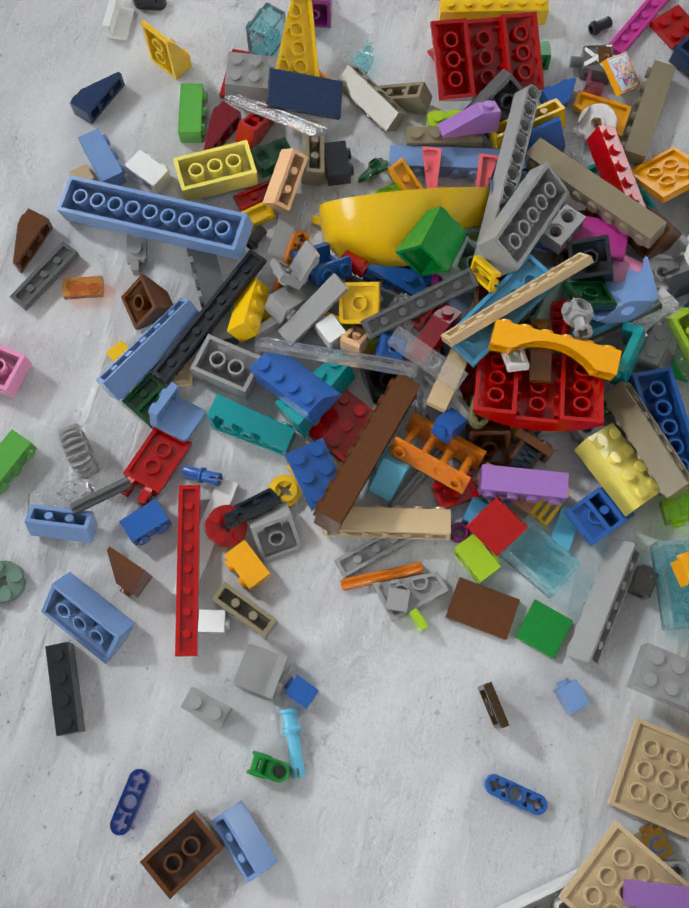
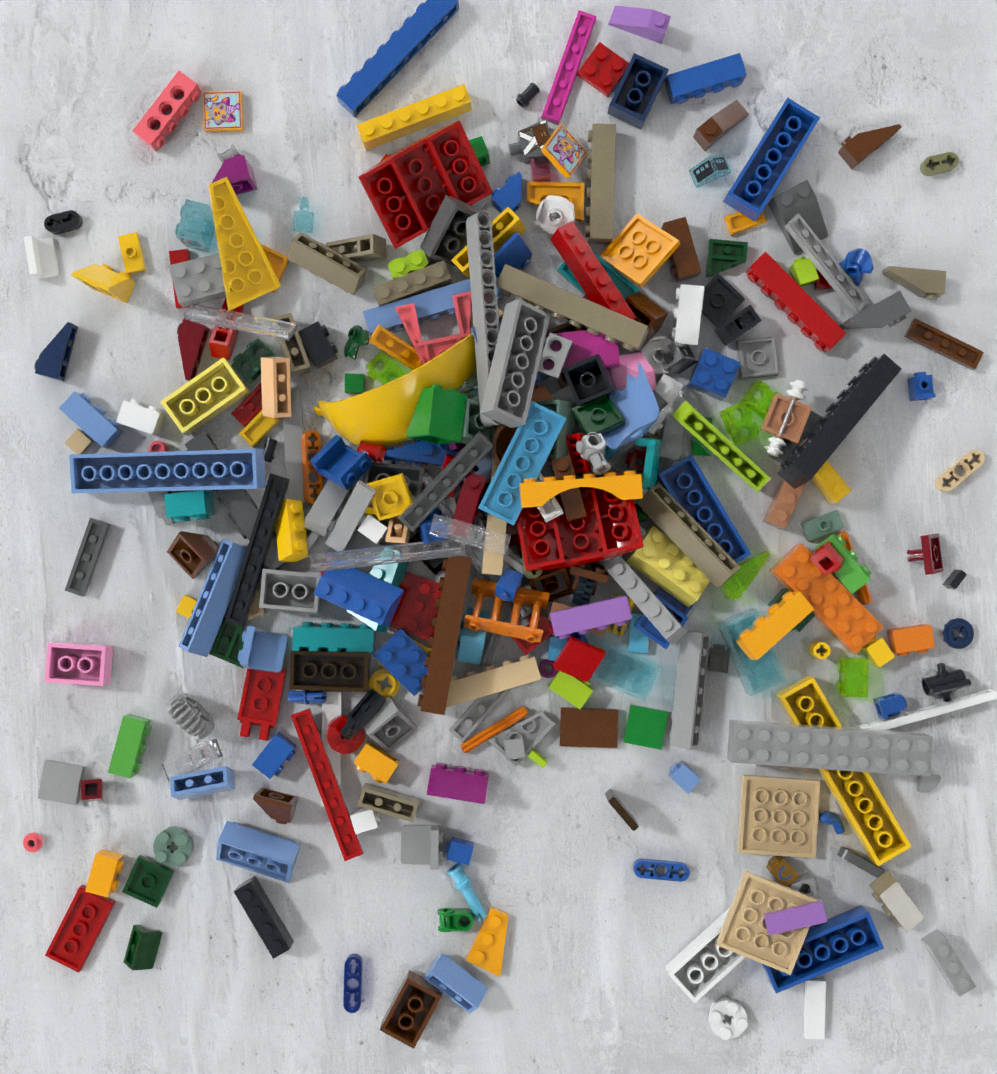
camera: 20 degrees left, 15 degrees up
(30, 235) = (56, 523): reddish brown slope -> none
(83, 287) = (128, 556): clear orange plate -> none
(100, 495) = (227, 749): dark grey axle -> none
(161, 256) = (189, 504): none -> teal brick
(192, 113) = (157, 338): bright green brick -> none
(199, 41) = (132, 253): none -> yellow plate
(206, 707) = (386, 891): light grey brick -> none
(235, 455) = (330, 670): none -> dark brown brick
(297, 810) = (490, 942): none -> light orange wing
(300, 268) = (321, 483): light grey bracket -> none
(304, 94) = (260, 287): dark blue tile -> none
(325, 615) = (458, 783): none -> magenta slope
(476, 119) = (433, 264): medium lavender slope -> none
(487, 270) = (495, 434): yellow tile -> none
(516, 299) = (533, 453): tan tile -> none
(586, 482) = (644, 598): none -> light grey brick

